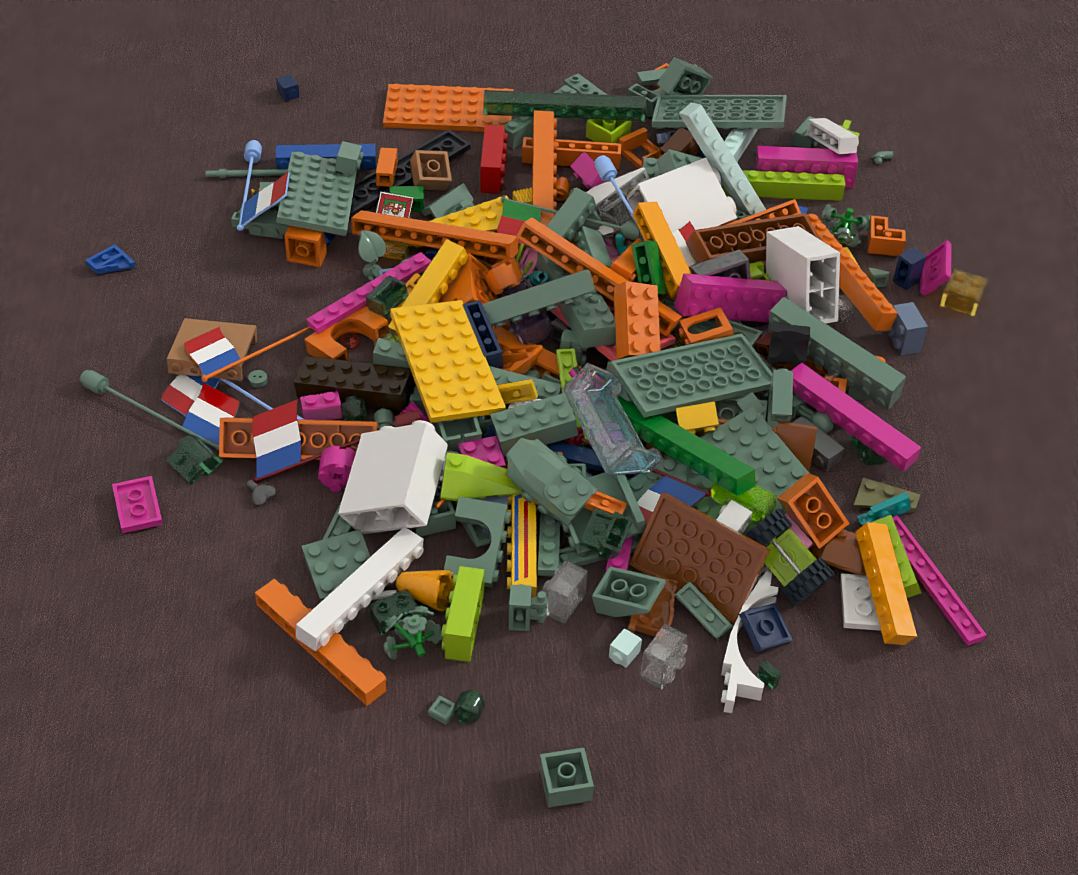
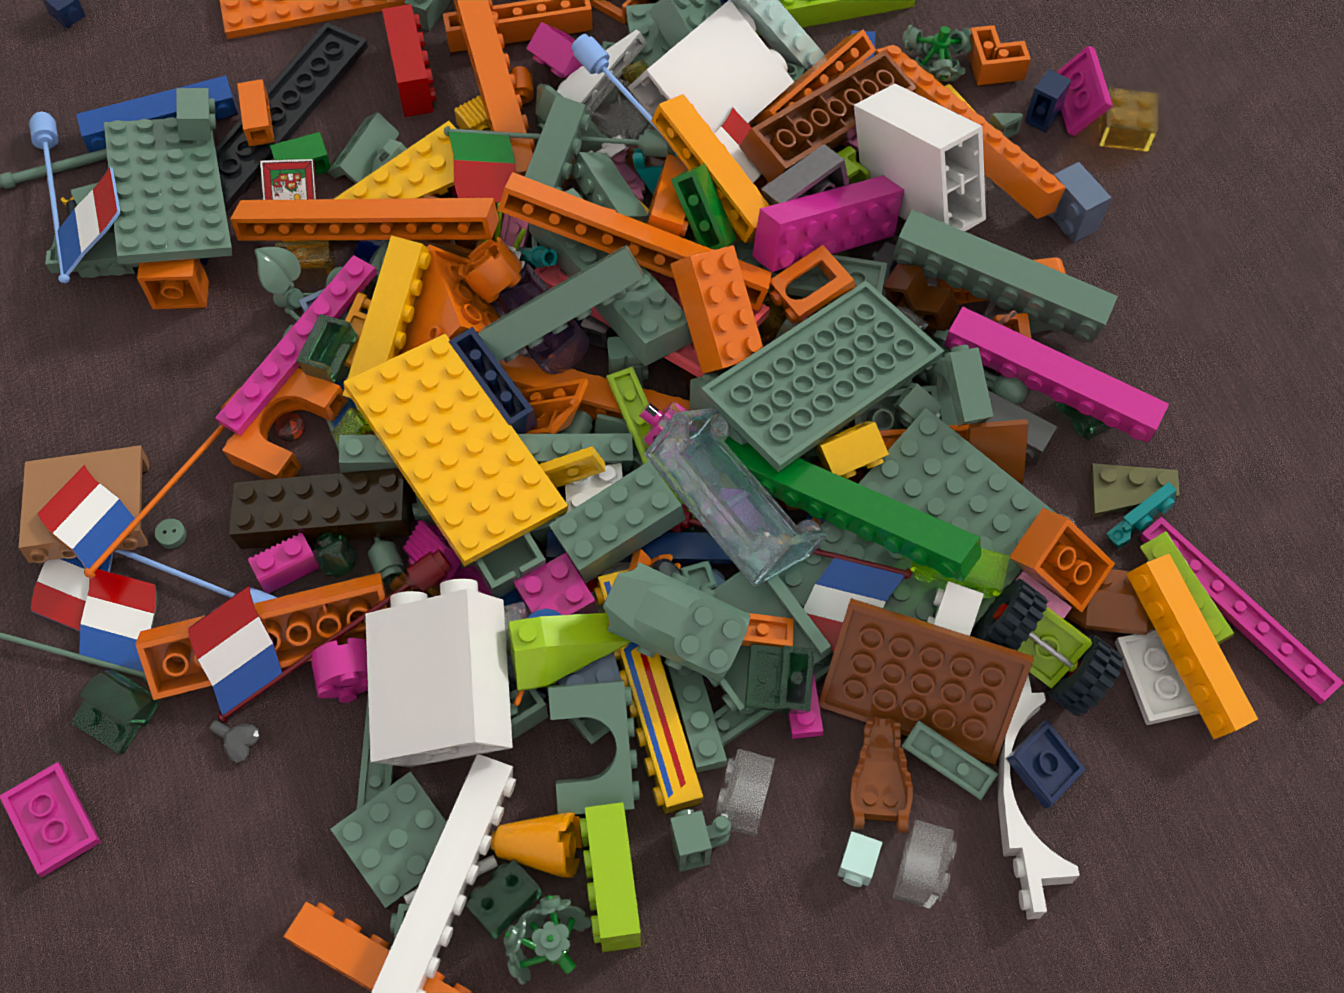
camera: 15 degrees left, 15 degrees up
(431, 170) = (323, 102): medium nougat brick -> none
(626, 593) = (840, 770): sand green slope -> none
(769, 674) = (1074, 842): clear green plate -> none
(788, 343) = (940, 284): black brick -> none

